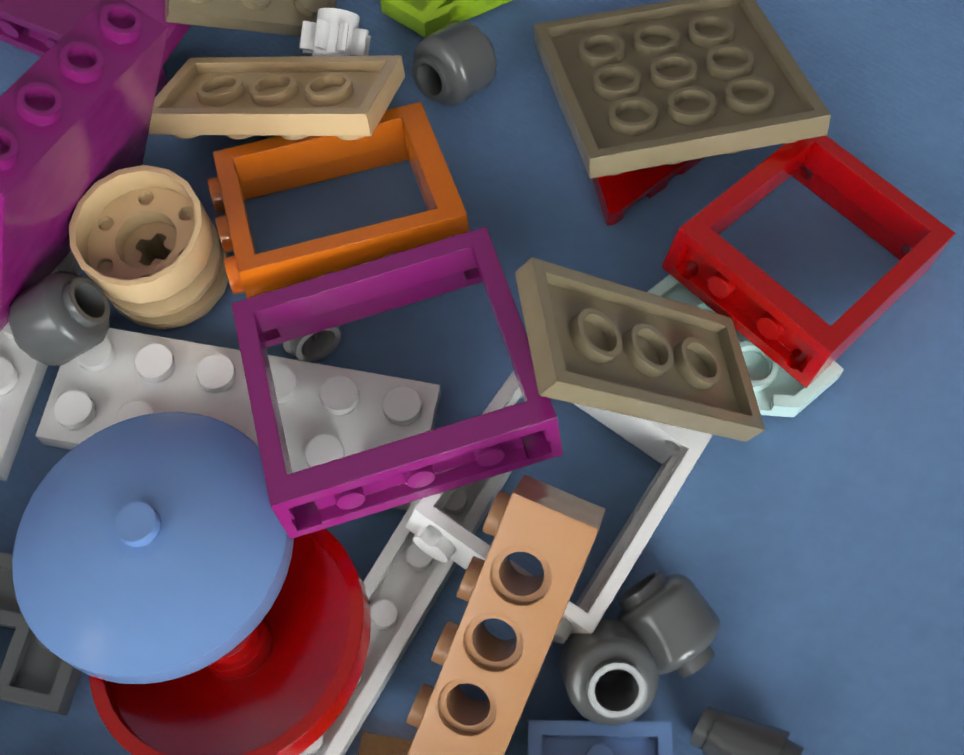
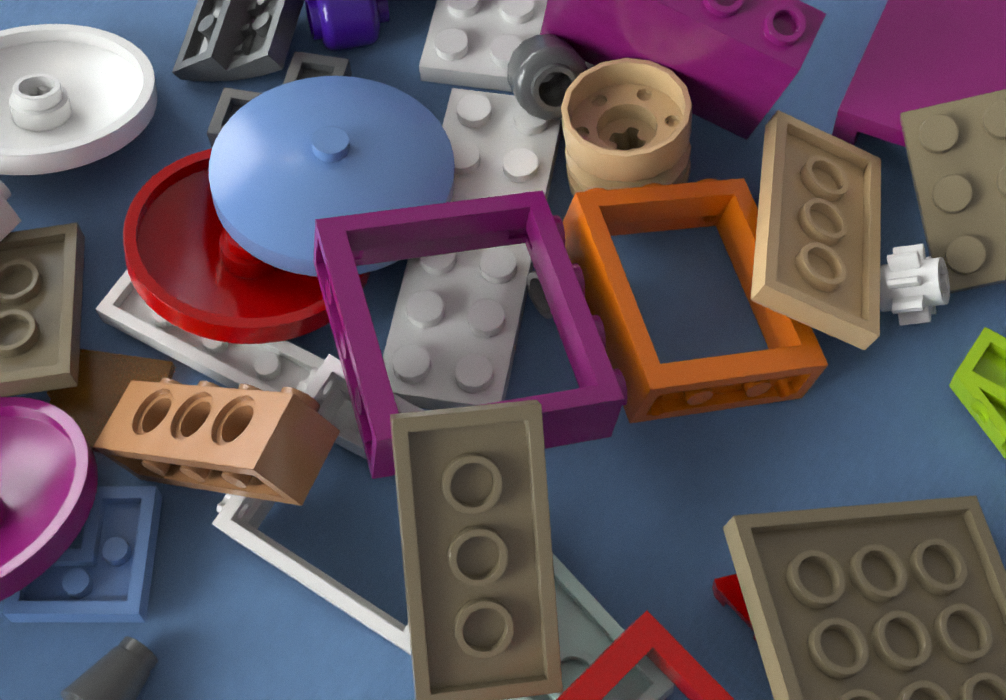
camera: 95 degrees right, 5 degrees down
(454, 63) = (902, 409): dark grey head -> none
(609, 673) = (185, 553): dark grey head -> none
(671, 621) = (233, 616): dark grey head -> none

